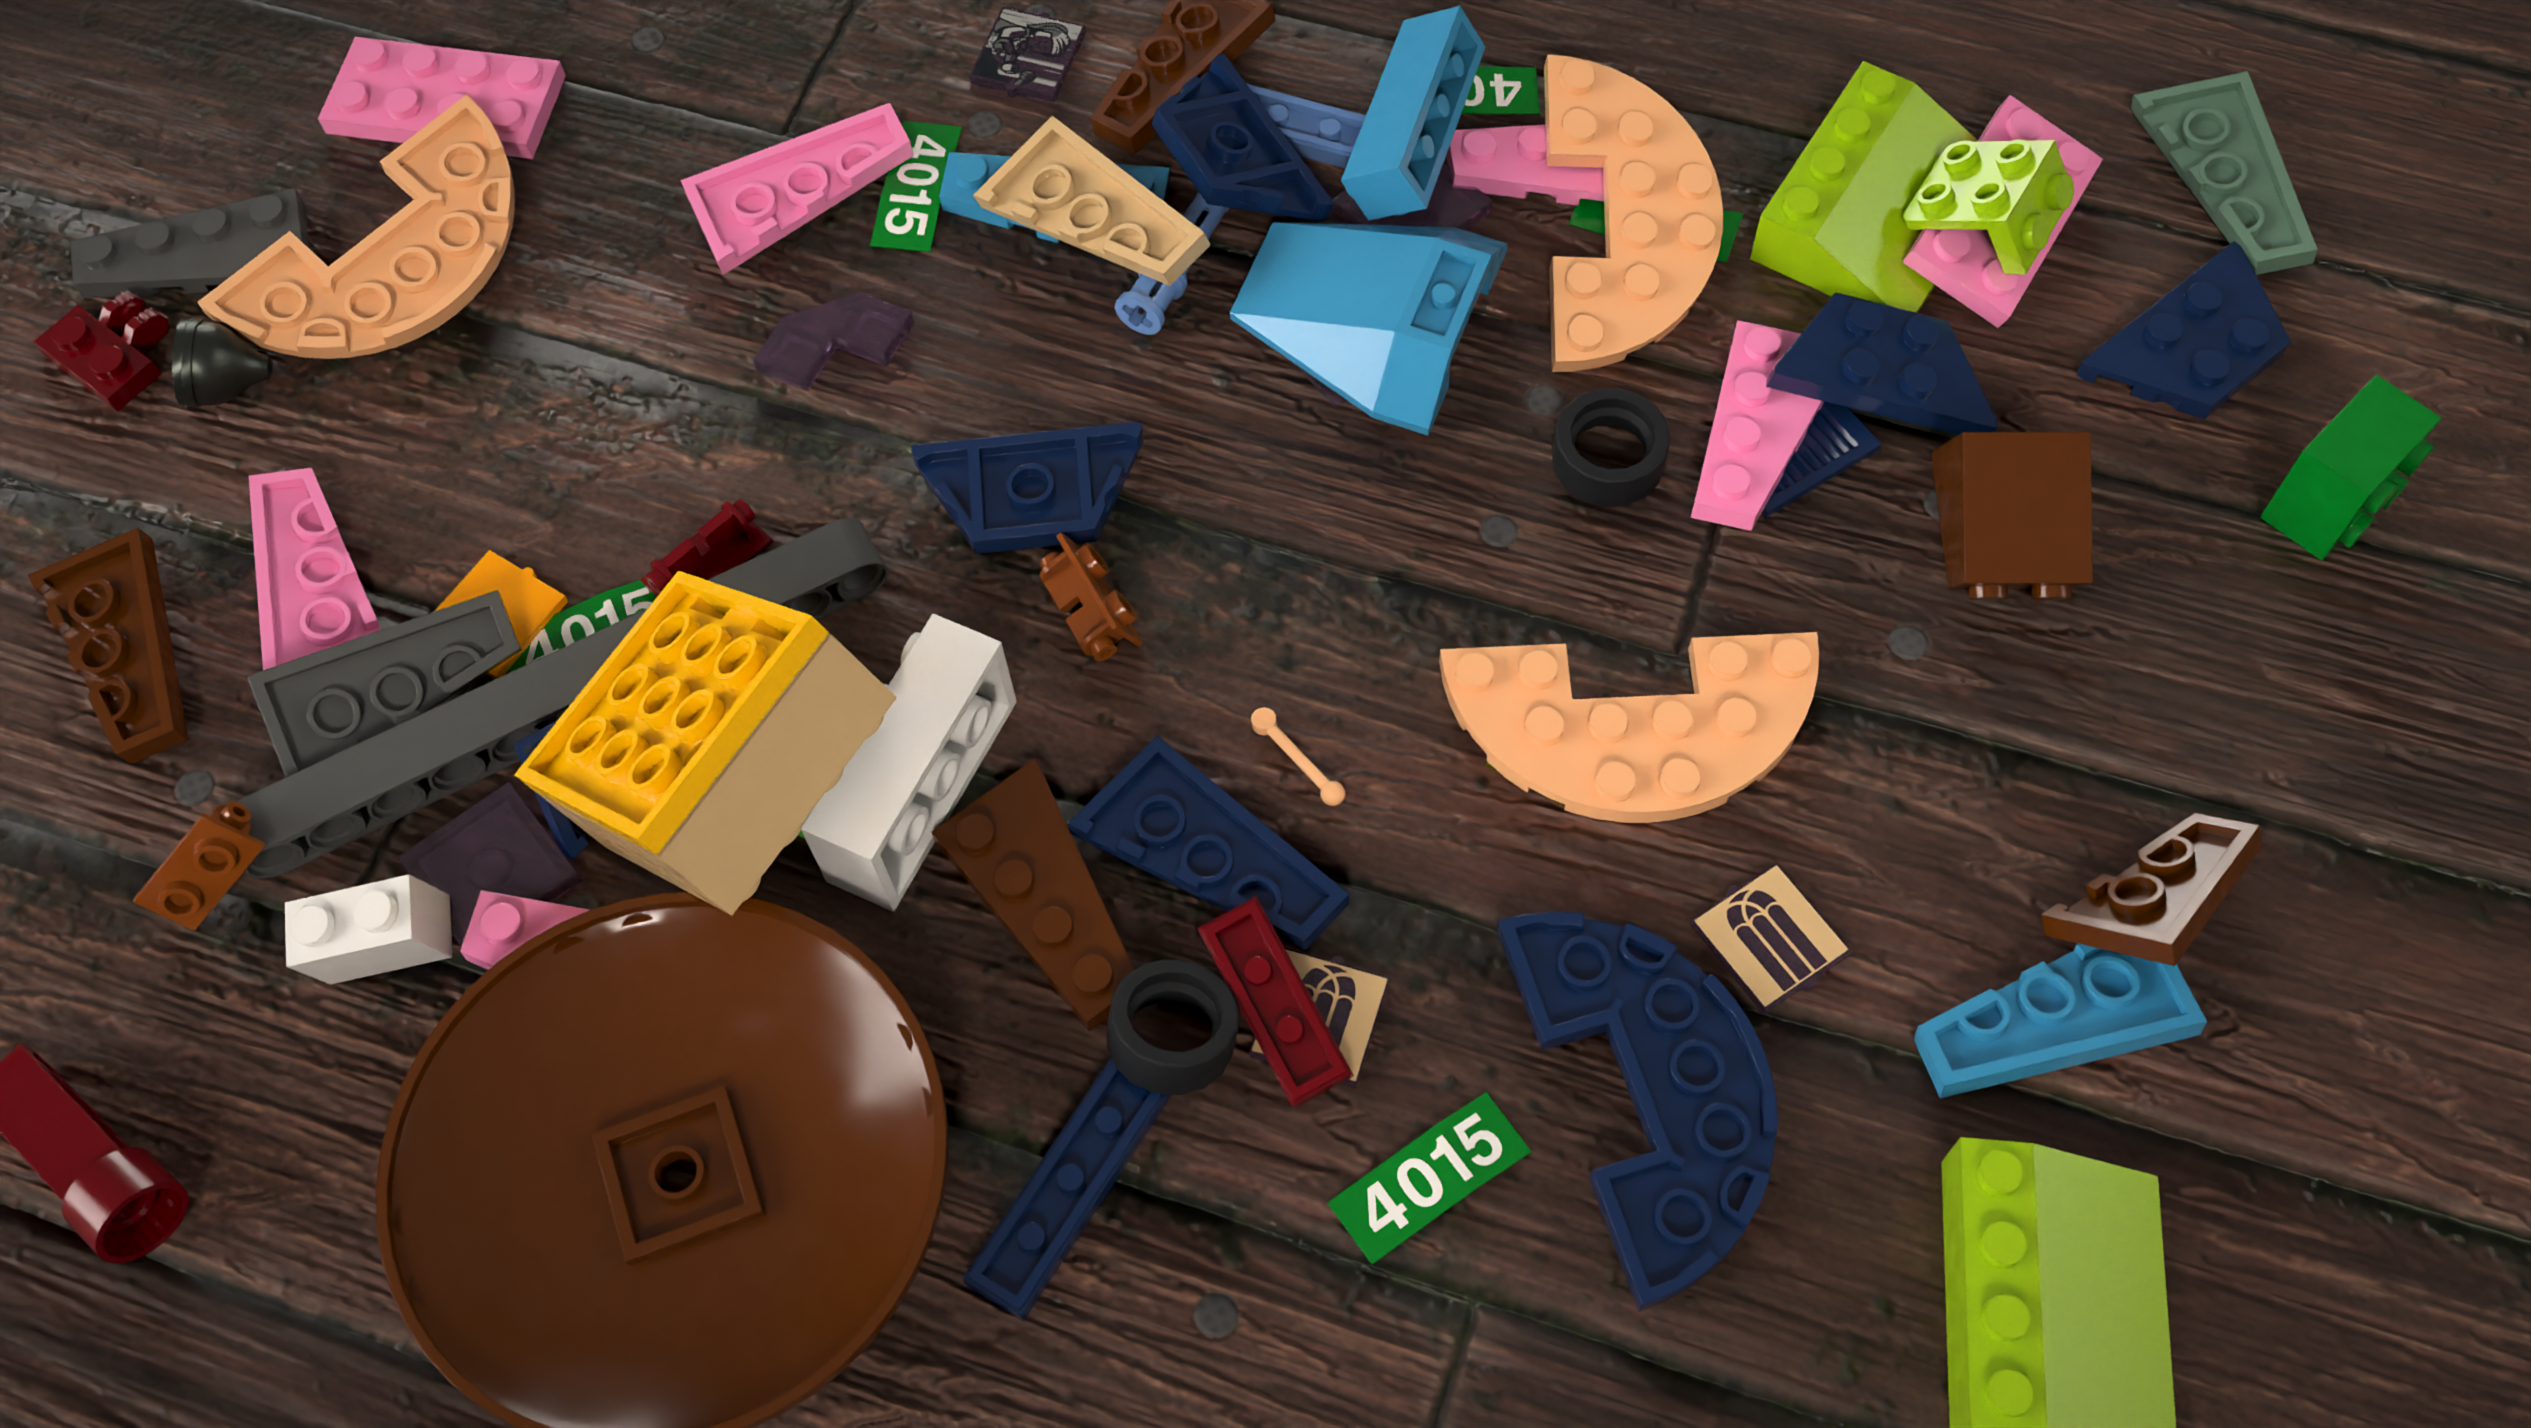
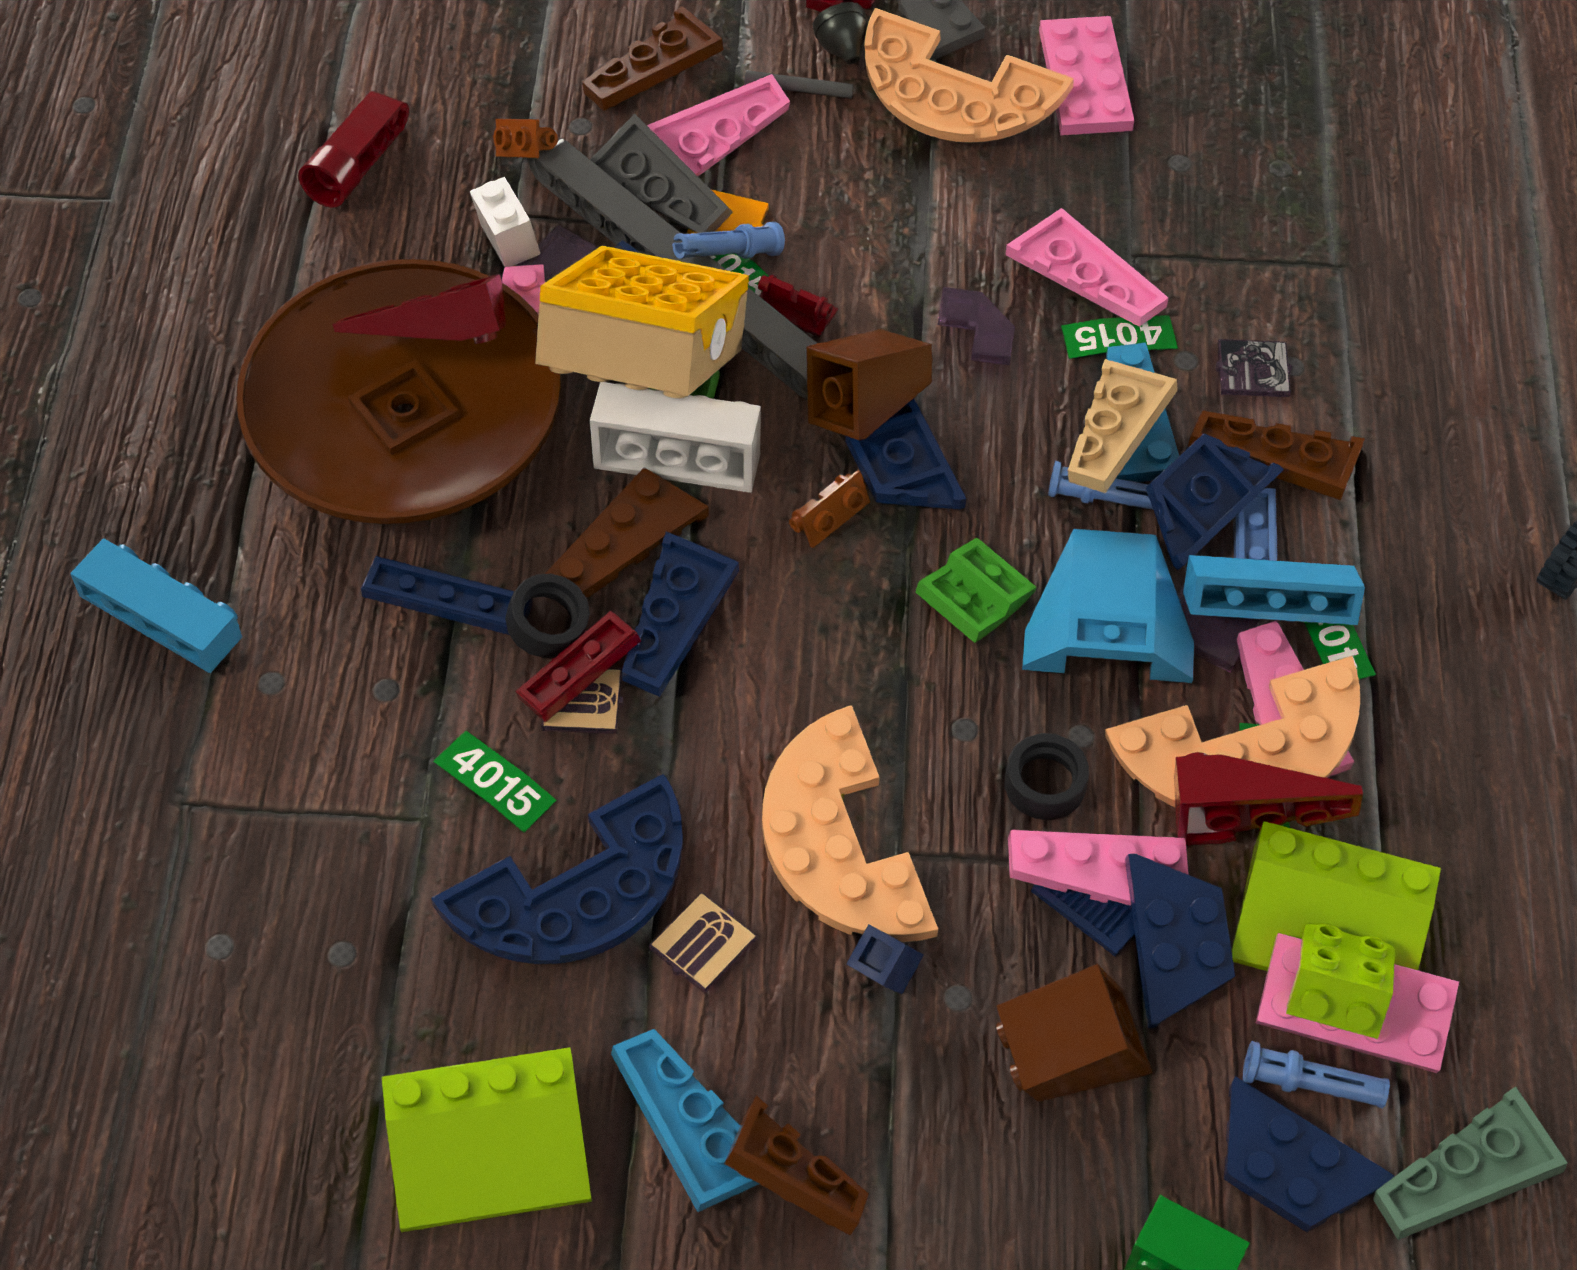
camera: 70 degrees right, 5 degrees down
(274, 452) = (805, 85): none -> dark grey bar
(565, 589) = (743, 241): none -> medium blue pin
(566, 1025) = (456, 314): none -> dark red wedge
(905, 486) = (864, 380): none -> reddish brown slope
(1265, 723) = (775, 626): light nougat hinge -> none
(1285, 456) = (975, 590): none -> bright green slope
(1721, 225) = (1235, 795): none -> dark red wedge
(1871, 698) = (885, 959): none -> dark blue brick
(2114, 237) = (1293, 1072): none -> medium blue pin

